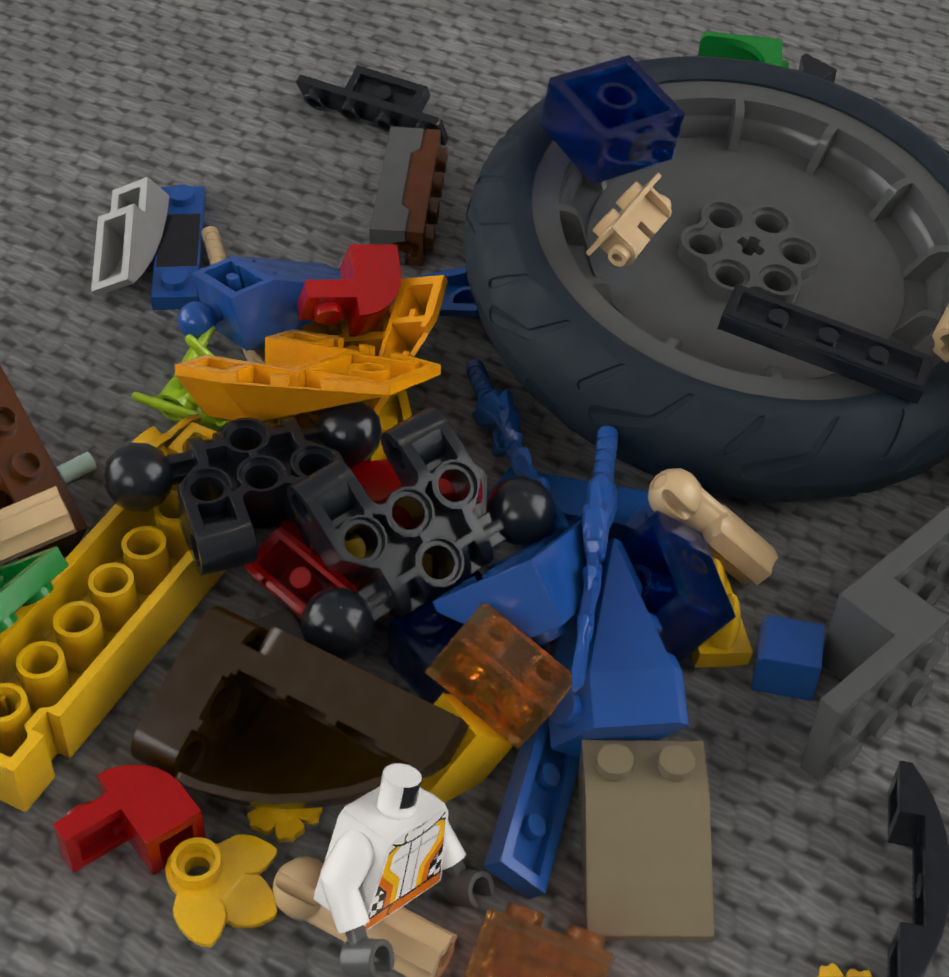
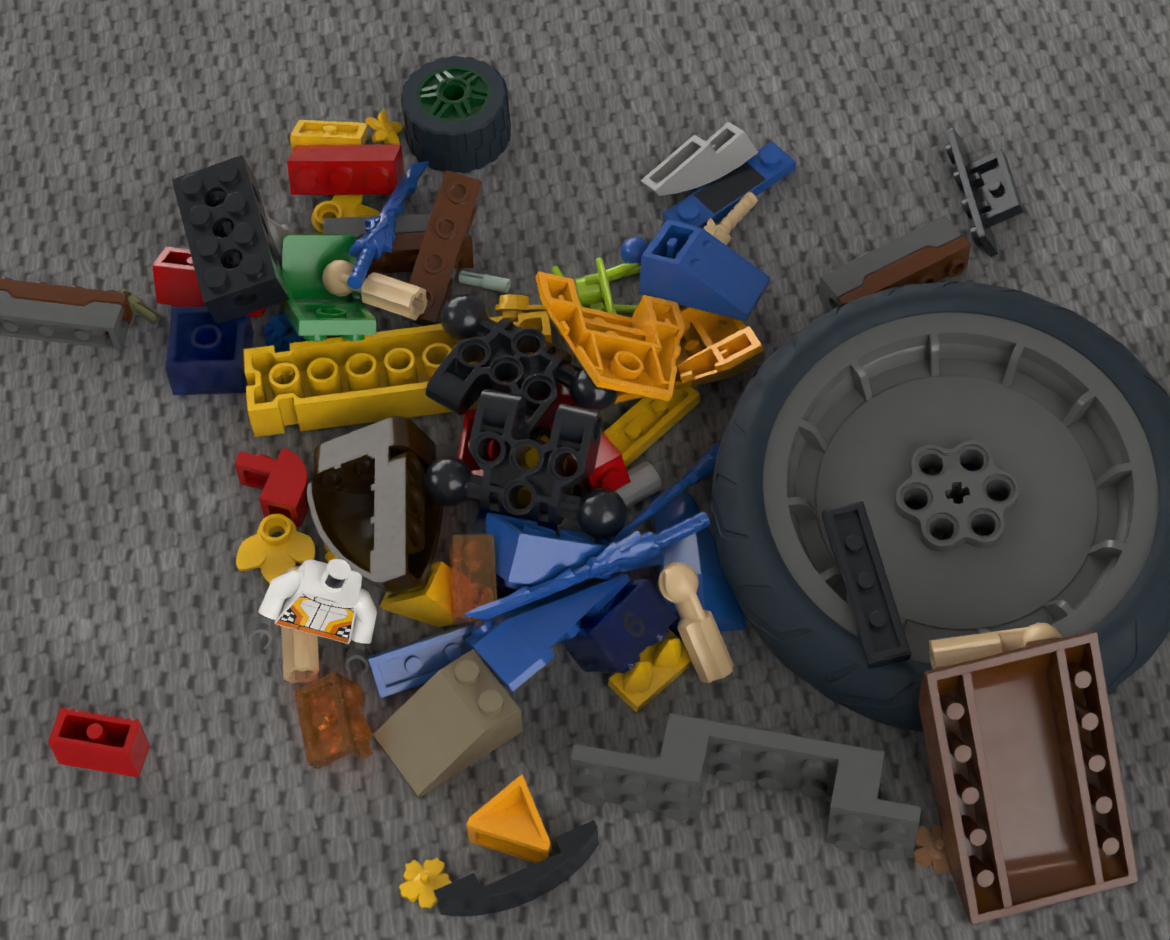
camera: 60 degrees right, 10 degrees up
(362, 295) = (726, 315): red brick -> none
(611, 119) = (932, 332): clear blue brick -> none
(630, 230) = (873, 405): tan hinge -> none
(788, 657) = (643, 725): blue piece -> none
(849, 844) = (511, 824): none -> light orange slope

